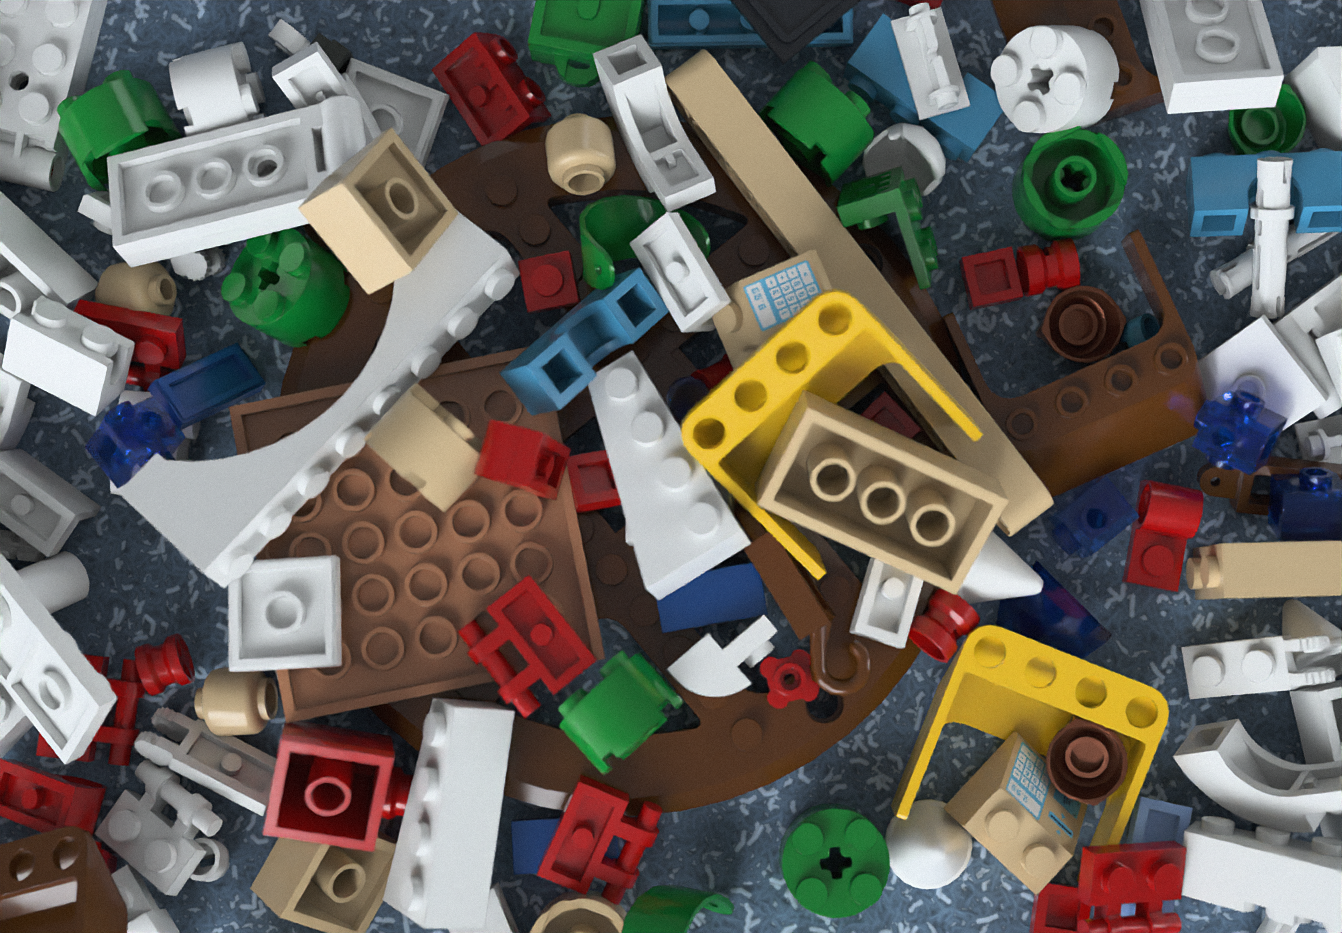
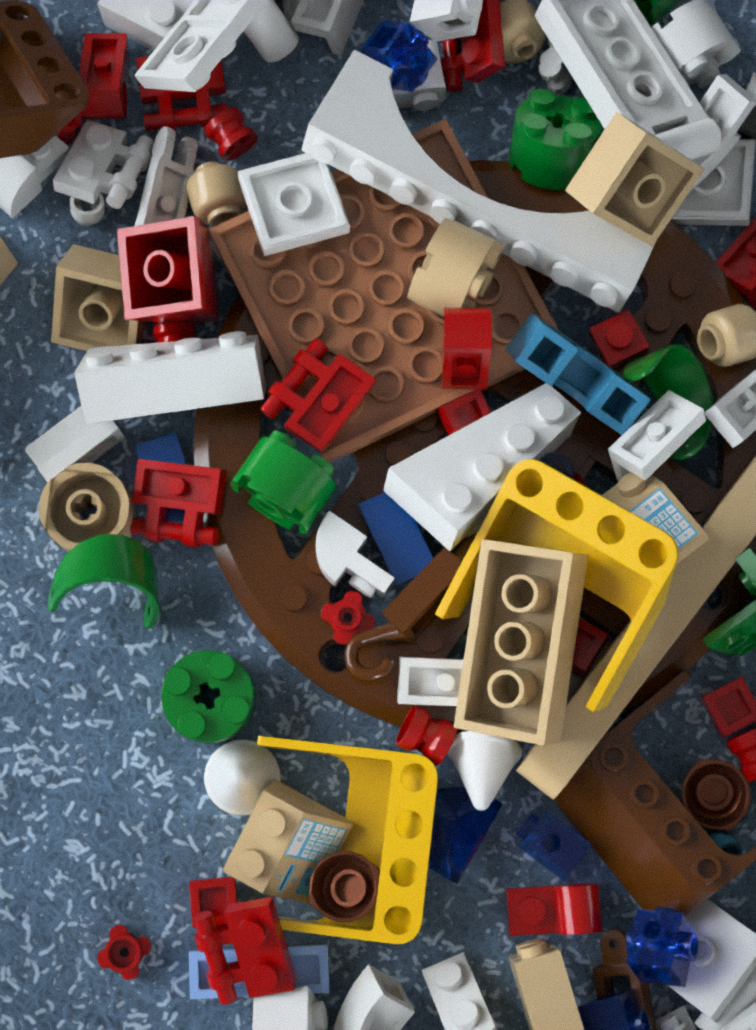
camera: 75 degrees right, 5 degrees down
(207, 386) = (459, 102): blue tile -> none

